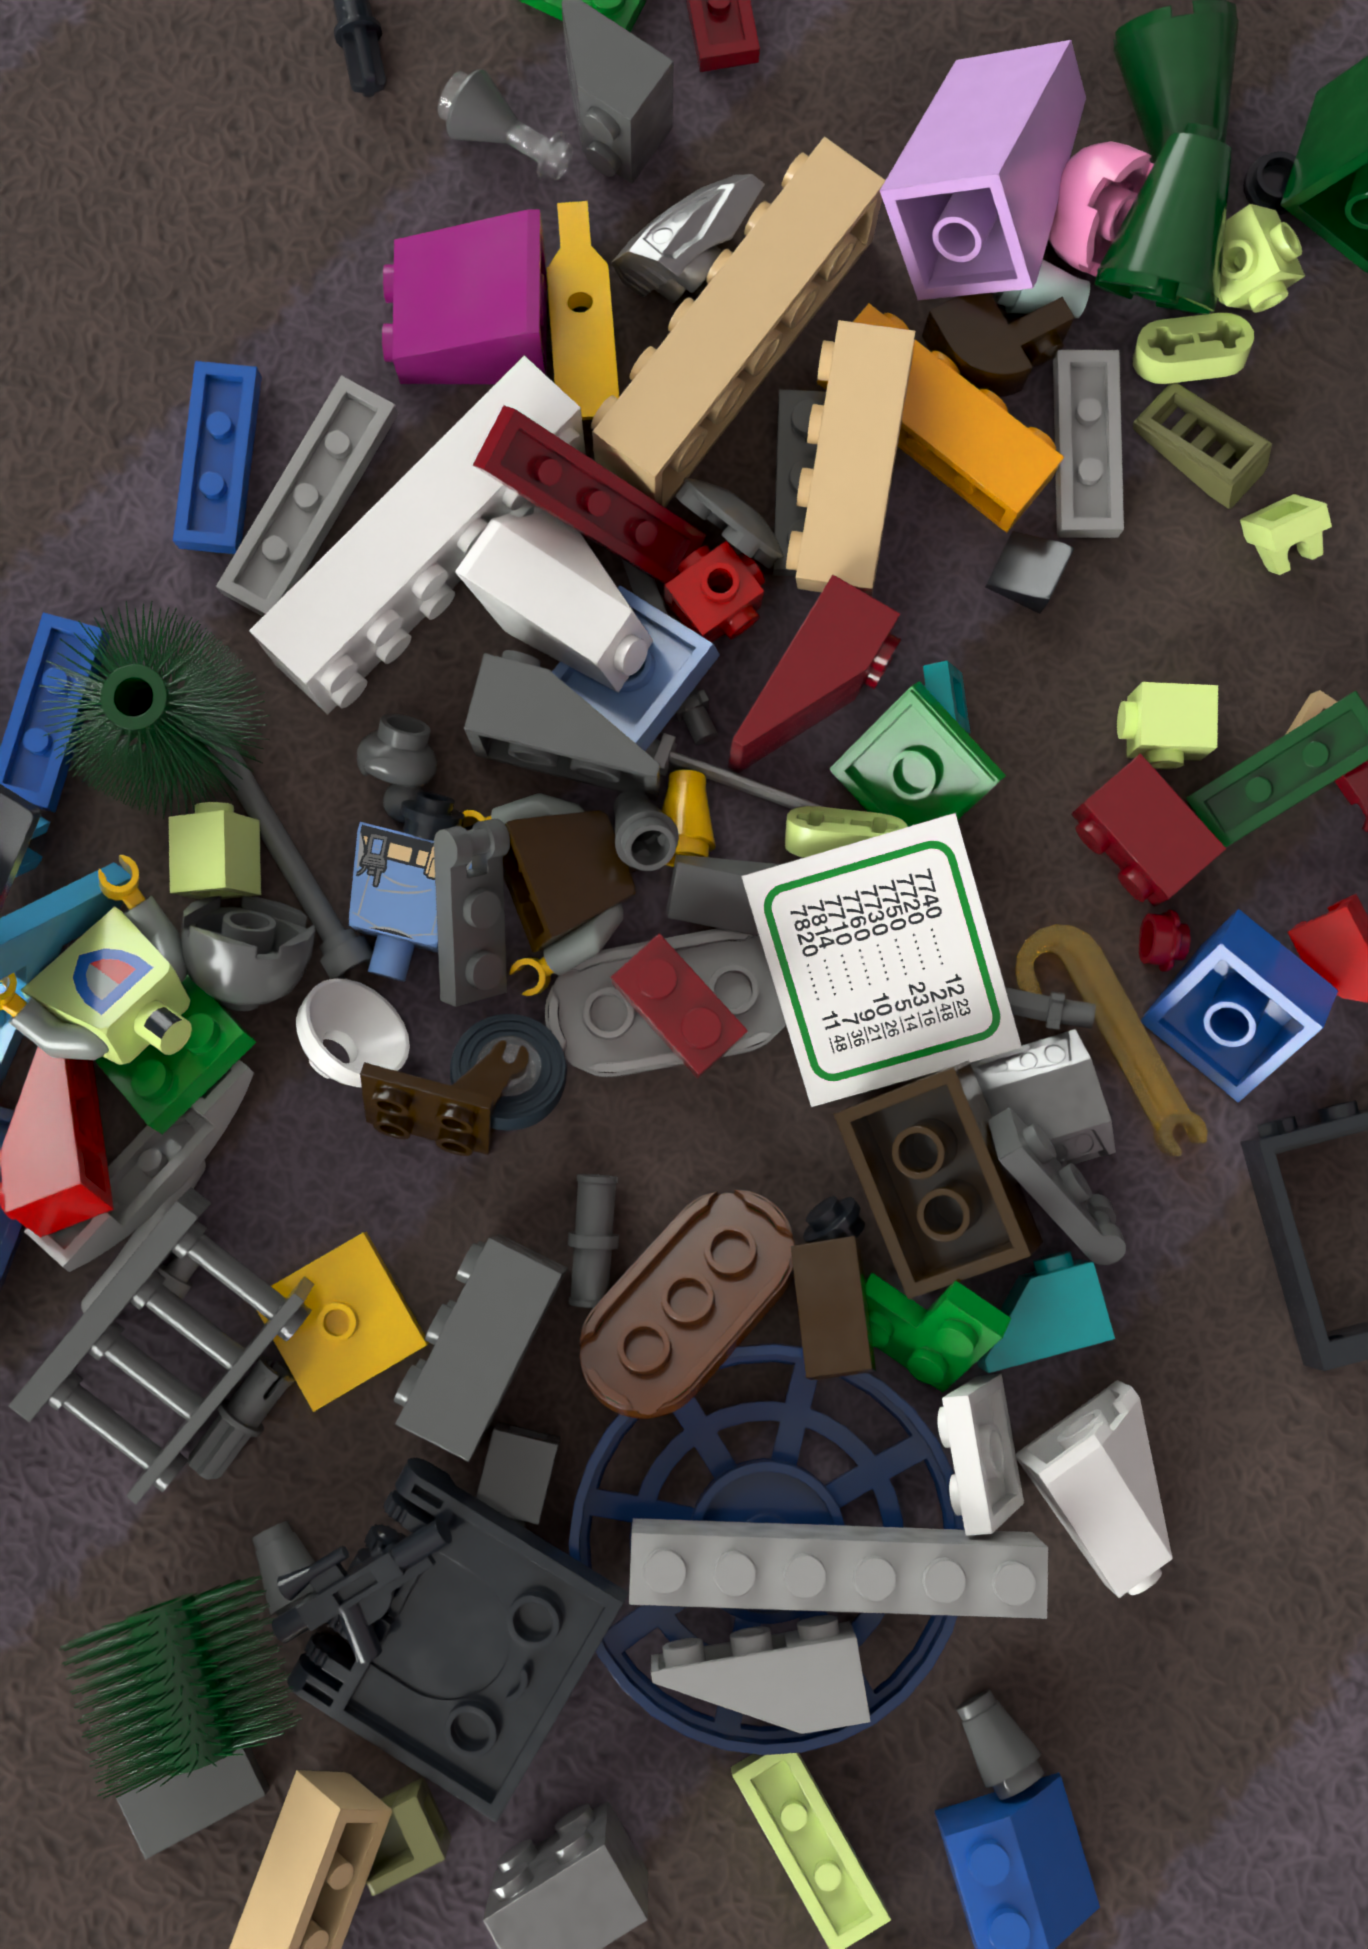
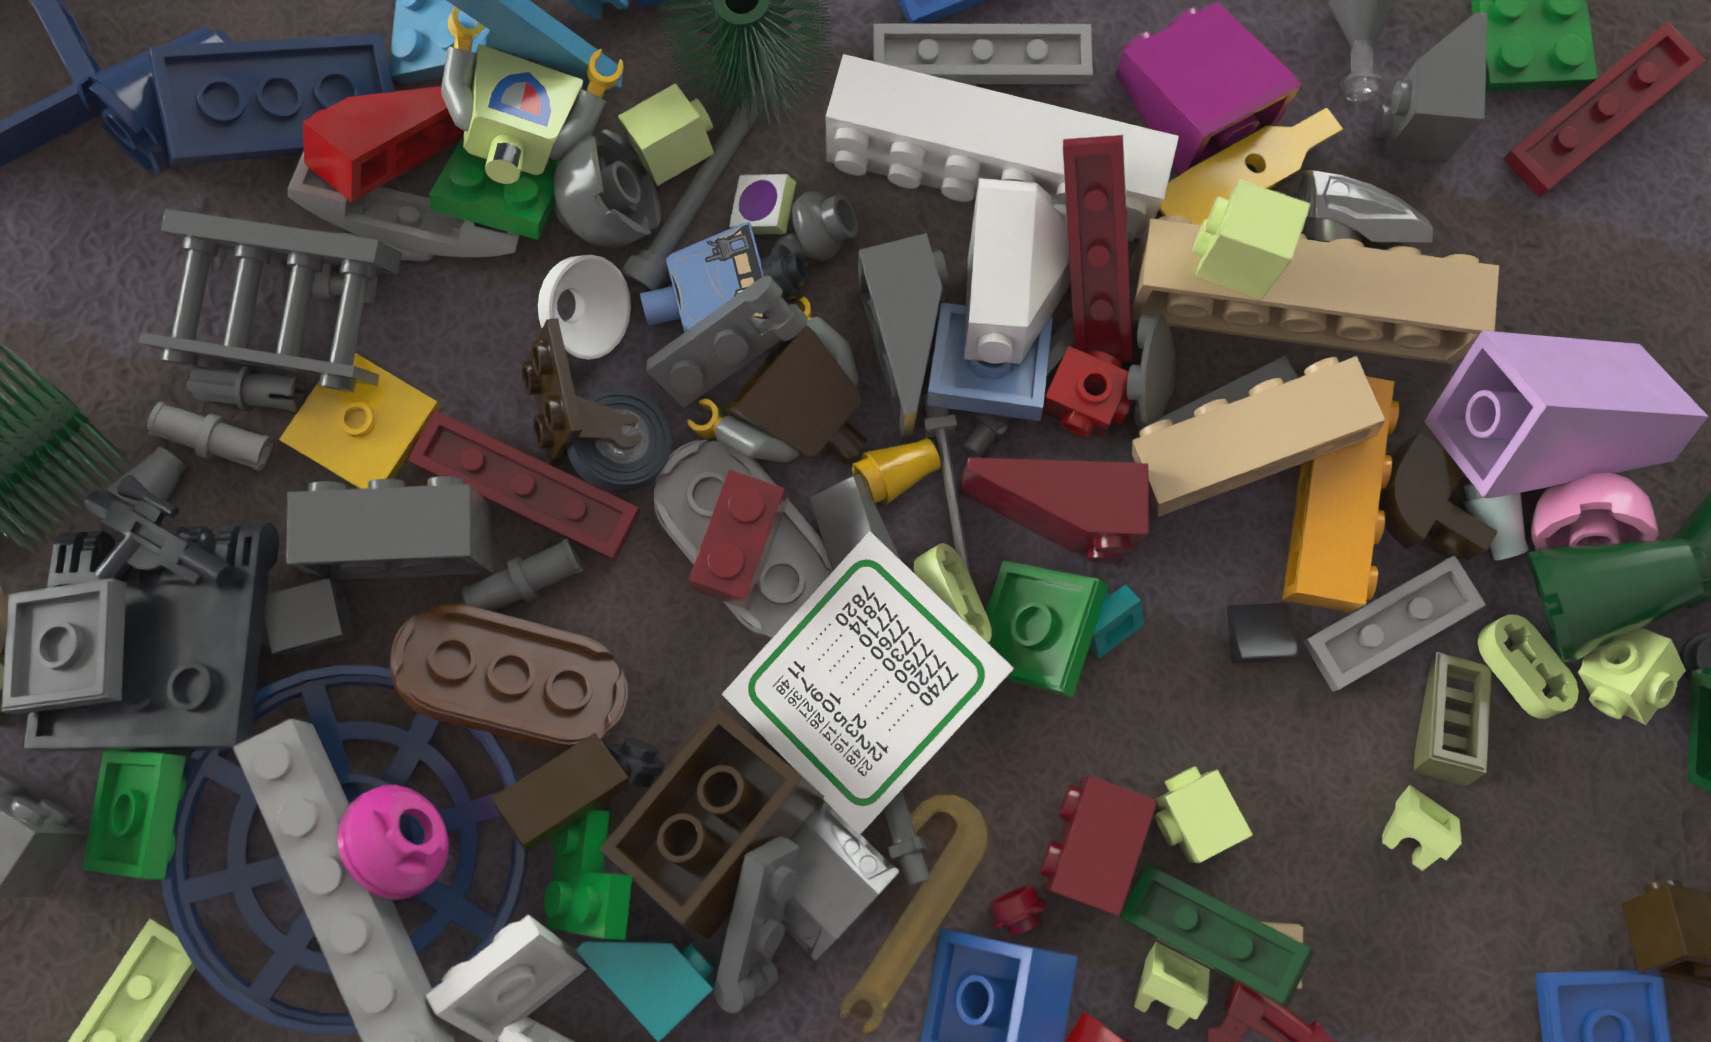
camera: 65 degrees right, 5 degrees down
(269, 1481) = (209, 436): none -> light grey pin
(341, 800) = (763, 202): none -> tile
(420, 1730) = (64, 647): none -> dark grey plate
(498, 1190) = (526, 485): none -> dark red plate
(625, 1741) = (135, 814): none -> green plate
(643, 832) = (861, 436): dark grey cone -> none
(682, 346) = (1249, 238): none -> yellowish green brick
(789, 1678) = (237, 909): light grey slope -> none
(797, 1510) = (378, 852): none -> dark pink piece
(1305, 835) = (1174, 982): none -> yellowish green tile

